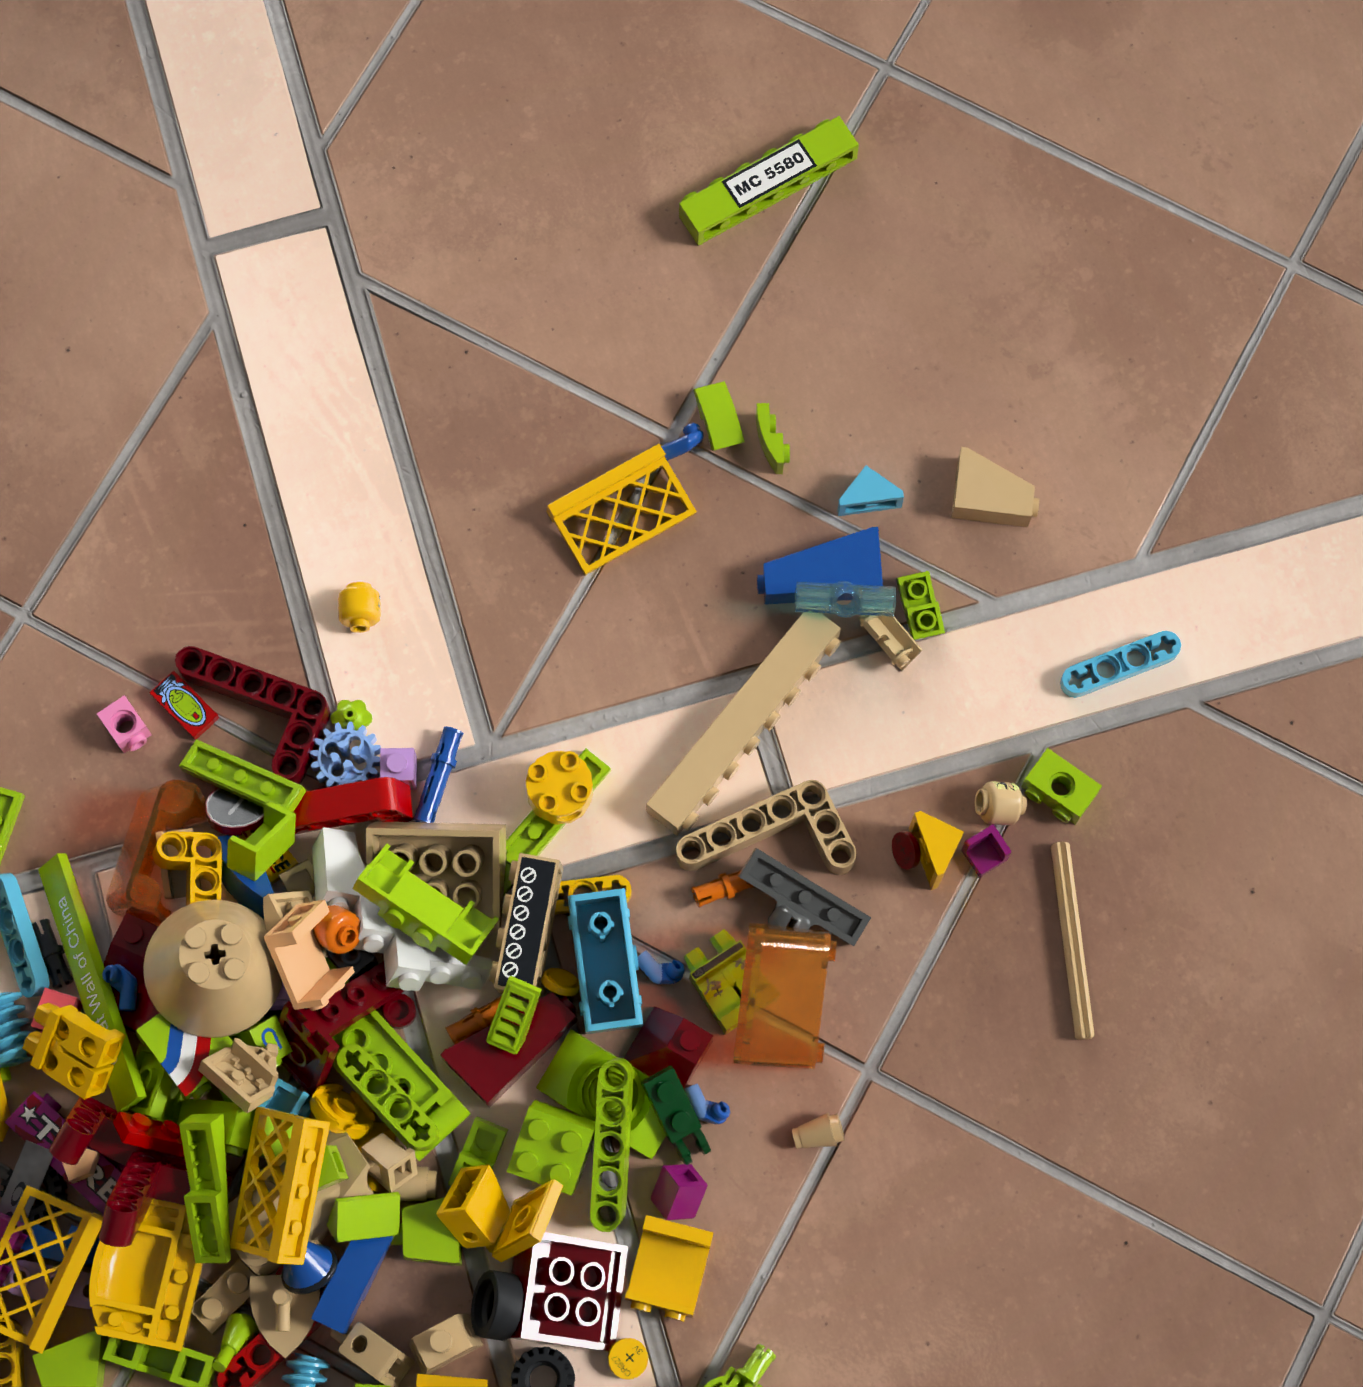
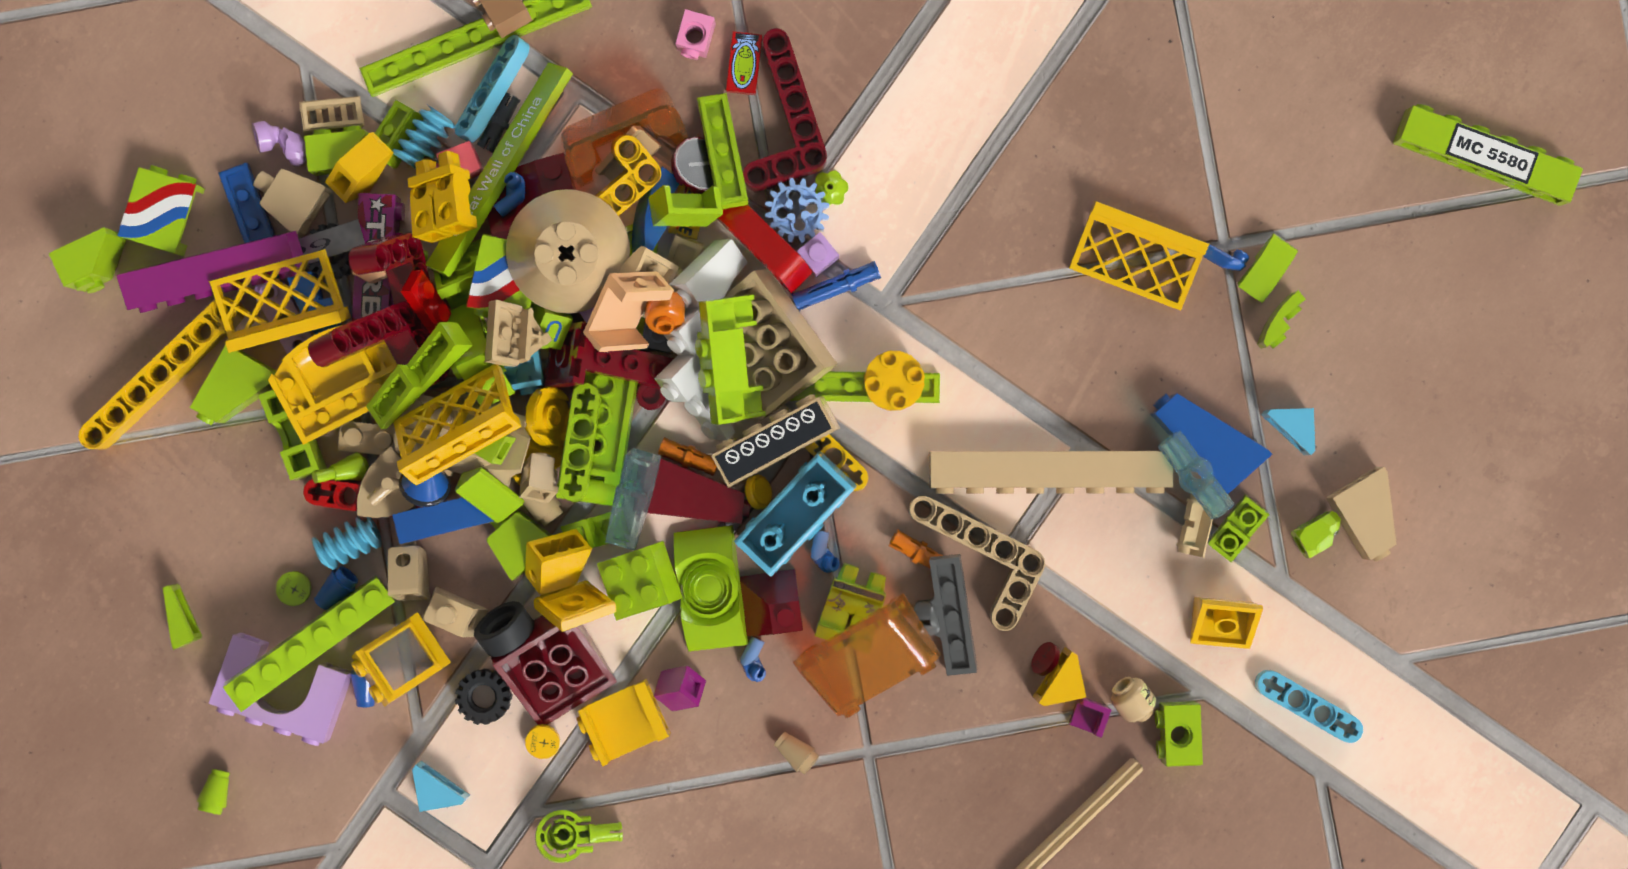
camera: 55 degrees right, 15 degrees up
(359, 607) = (913, 127): yellow head -> none
(475, 1091) = (632, 498): none -> clear light blue slope
(506, 1034) = (702, 484): lime slope -> none
(603, 1159) = (659, 623): lime beam -> none
(674, 1111) = (730, 643): dark green hinge -> none
(976, 545) = (1316, 533): none -> lime rock
(992, 676) = (1224, 622): none -> yellow slope

